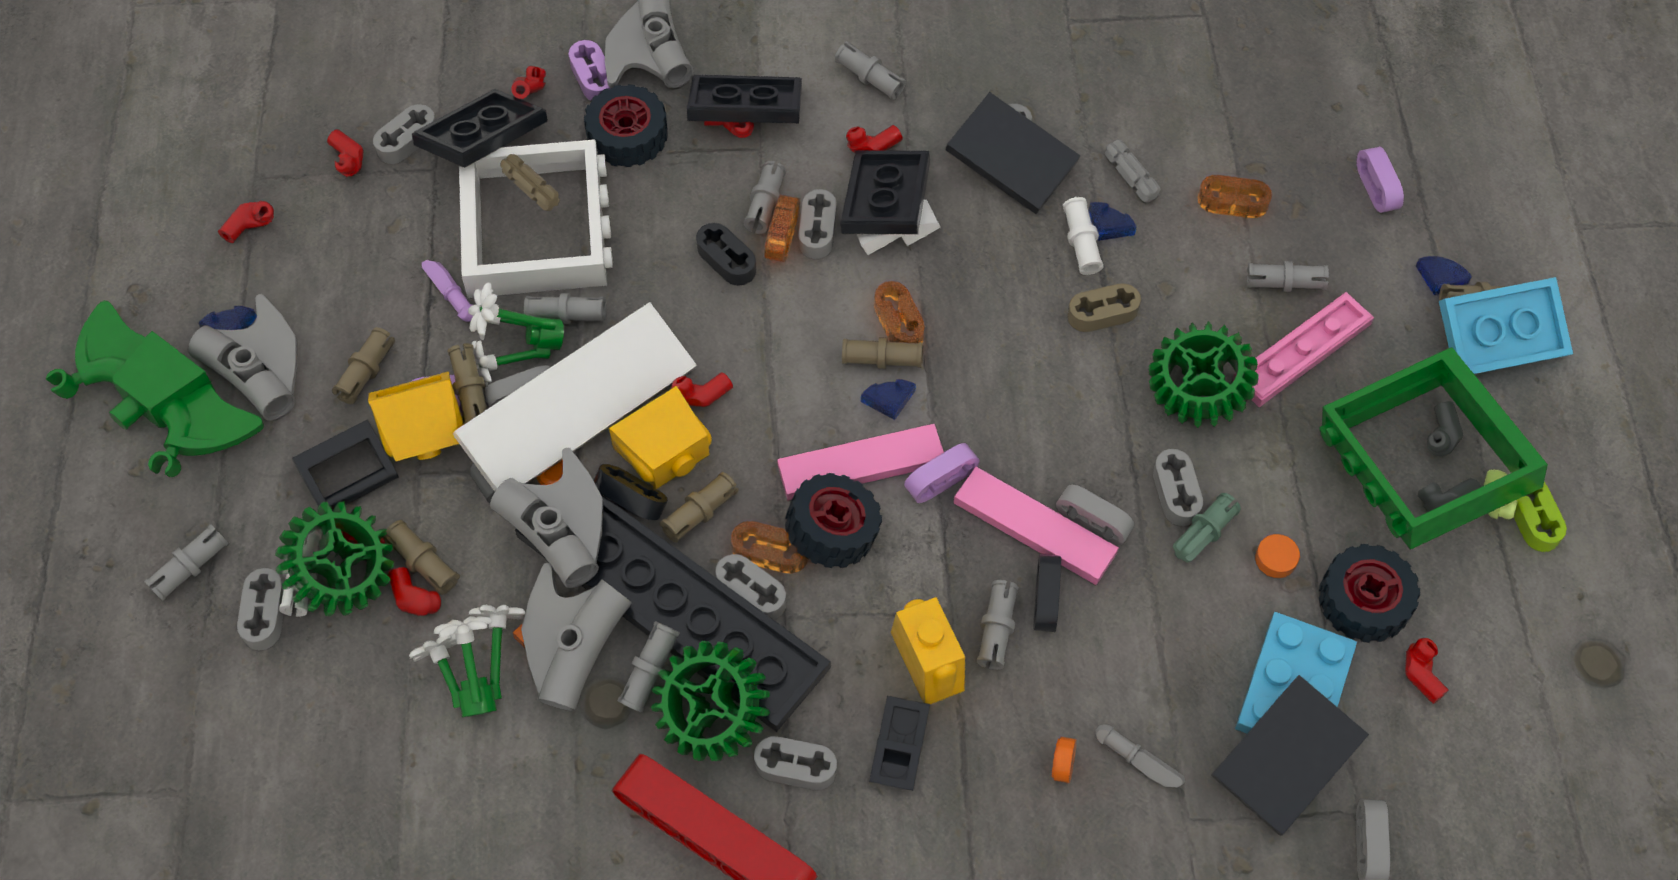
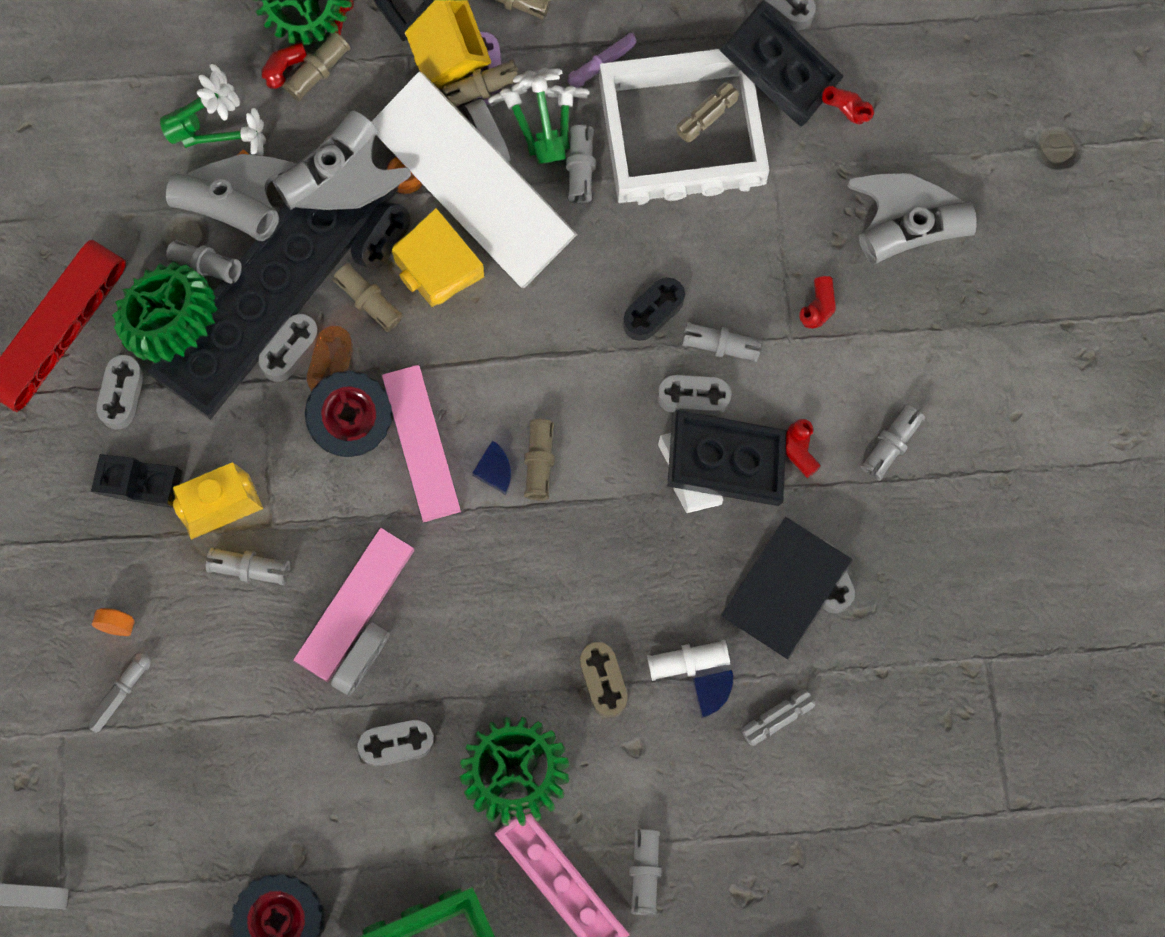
camera: 85 degrees right, 15 degrees up
(586, 73) = (872, 158): lavender beam -> none
(626, 125) = (800, 183): black wheel -> none
(704, 394) = (491, 291): red arm -> none
(745, 99) = (840, 316): black tile -> none
(782, 228) = (682, 359): clear orange beam -> none
(906, 313) = (583, 467): clear orange beam -> none
(941, 473) = (404, 515): lavender beam -> none
(1047, 593) = (278, 611): black beam -> none
(1206, 528) = (348, 766): sand green axle -> none
(1234, 196) = (740, 824): clear orange beam -> none
(1277, 556) = (321, 836): orange tile -> none
(1290, 651) = (187, 843): medium azure plate -> none
(1290, 755) = (108, 825): black tile -> none

